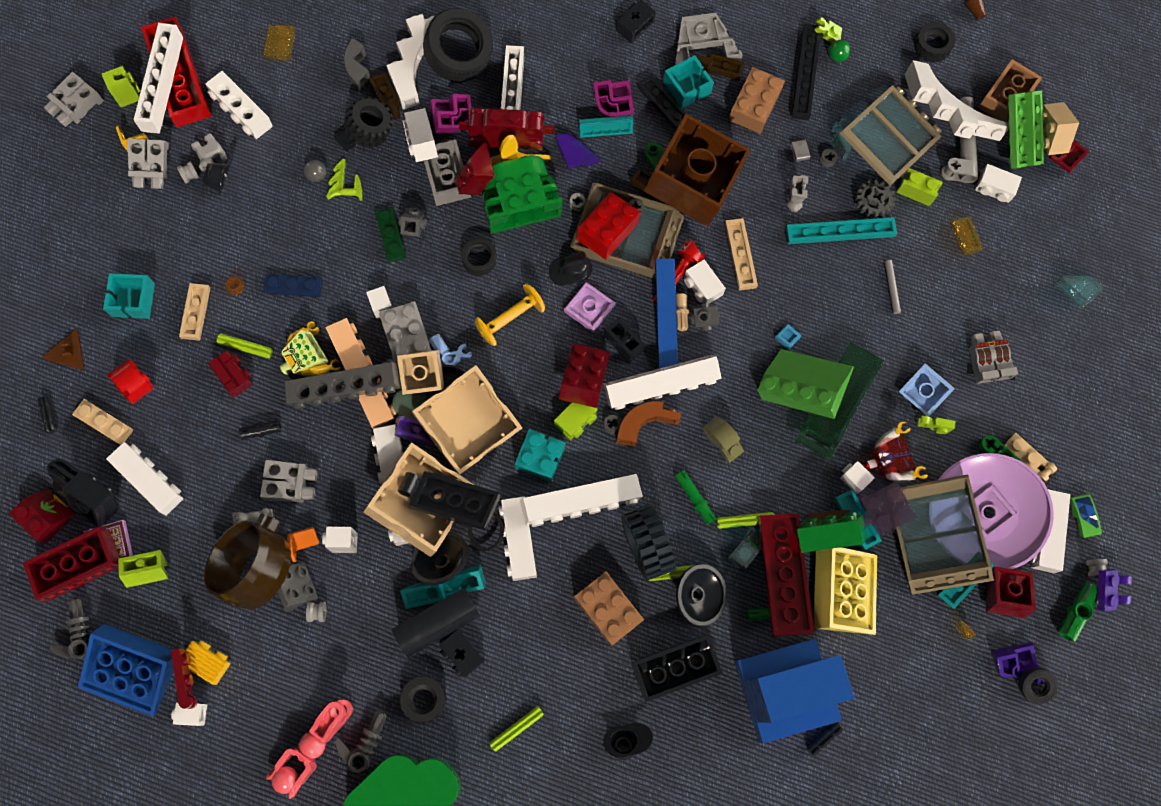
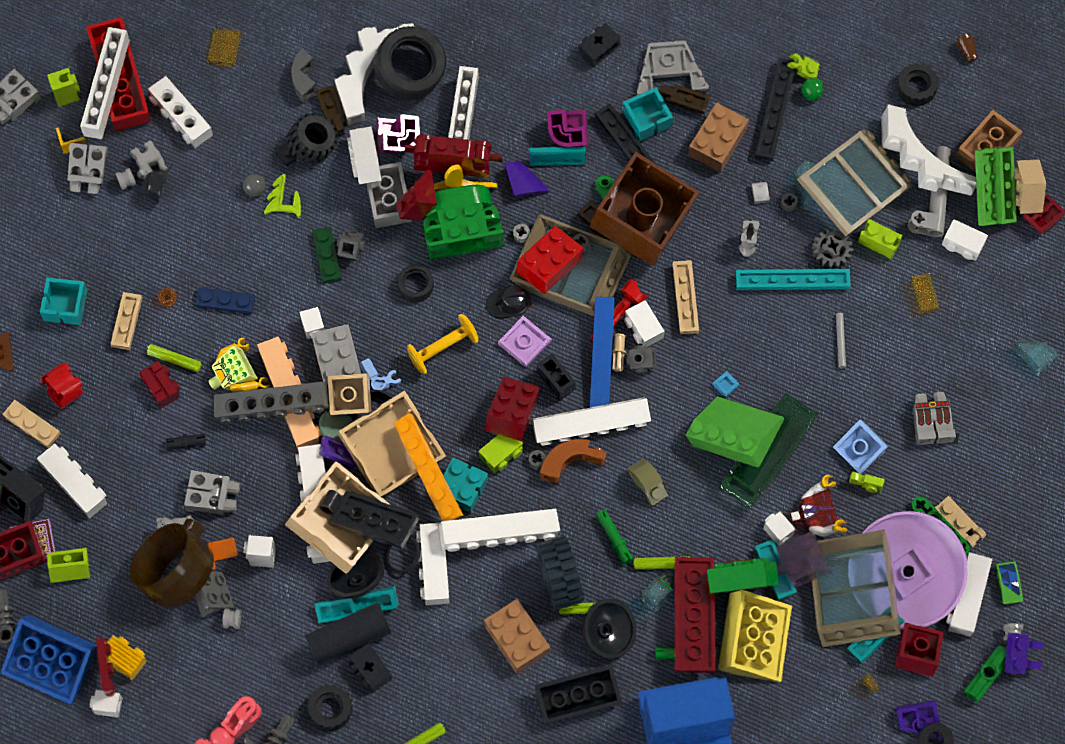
camera: 10 degrees right, 5 degrees down
(505, 443) = (427, 468): none -> light orange plate

